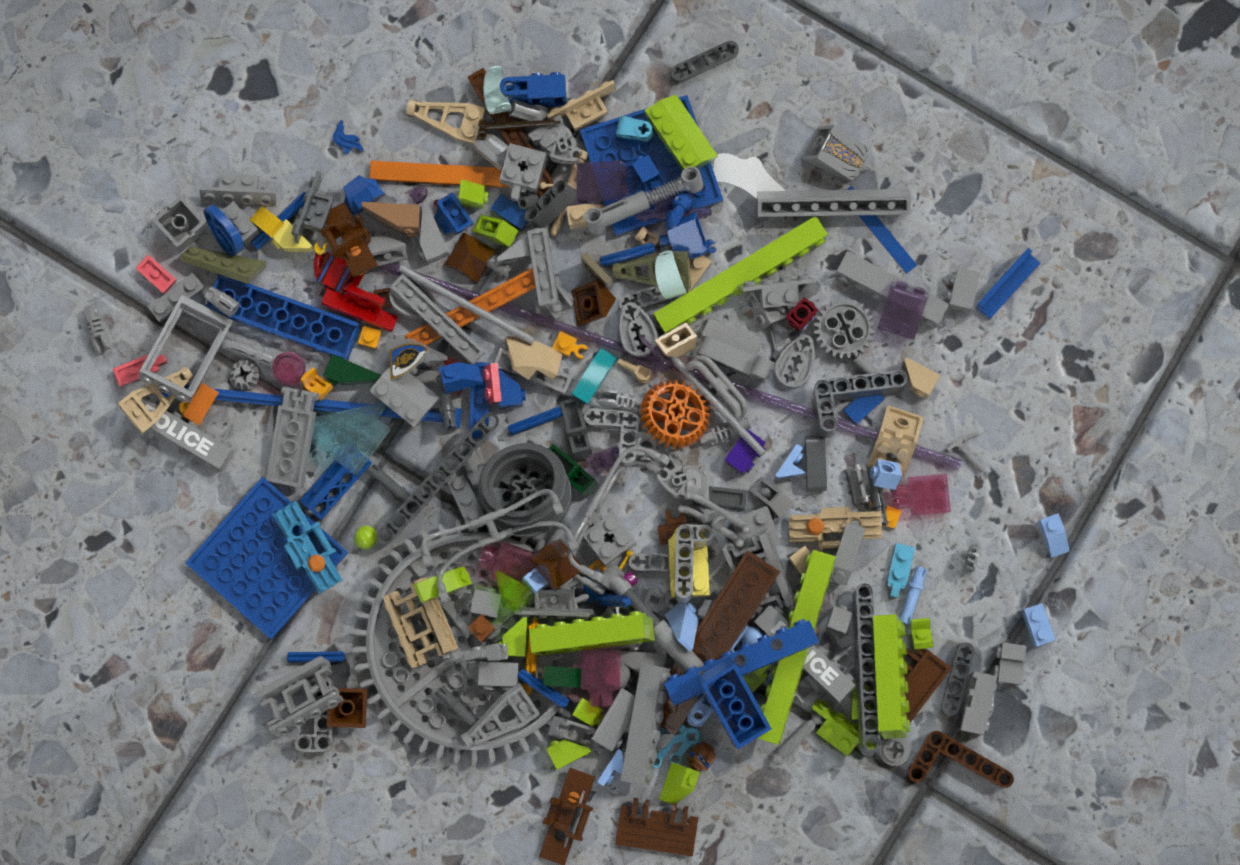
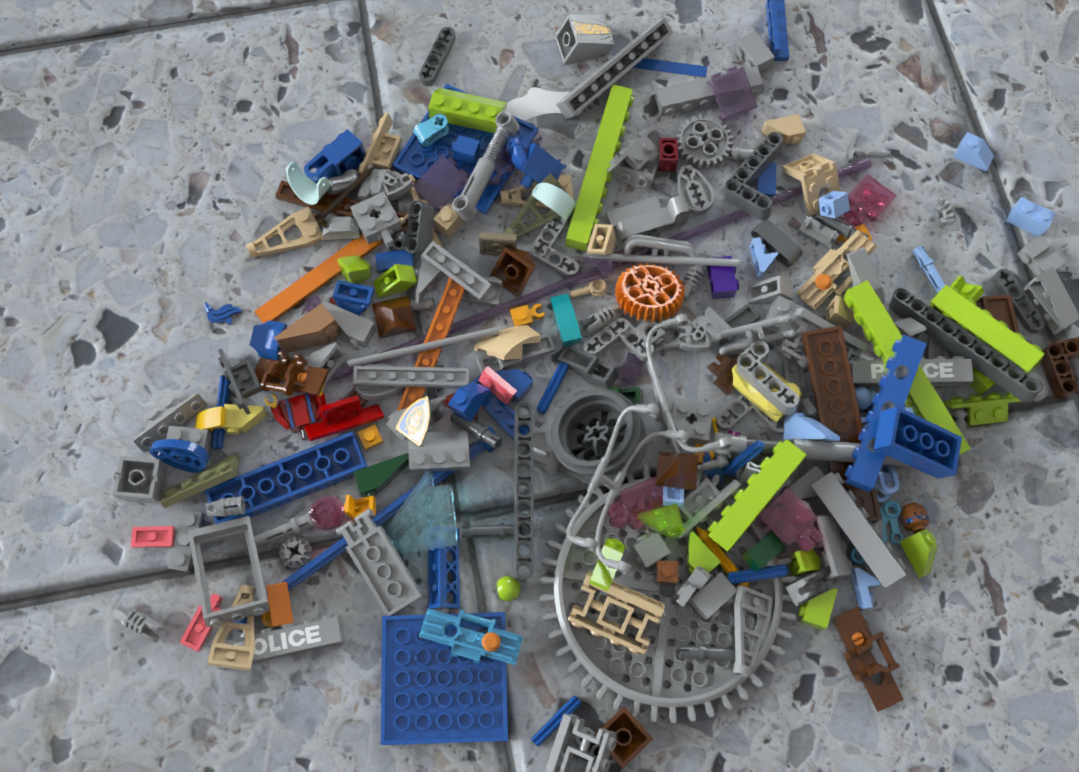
camera: 50 degrees left, 10 degrees down
(465, 500) = (559, 489): light grey plate -> none
(627, 254) = (509, 214): blue axle -> none
(627, 324) = (563, 270): light grey piece -> none
(656, 832) = (938, 607): reddish brown hinge -> none
(900, 568) = (903, 263): medium azure hinge -> none

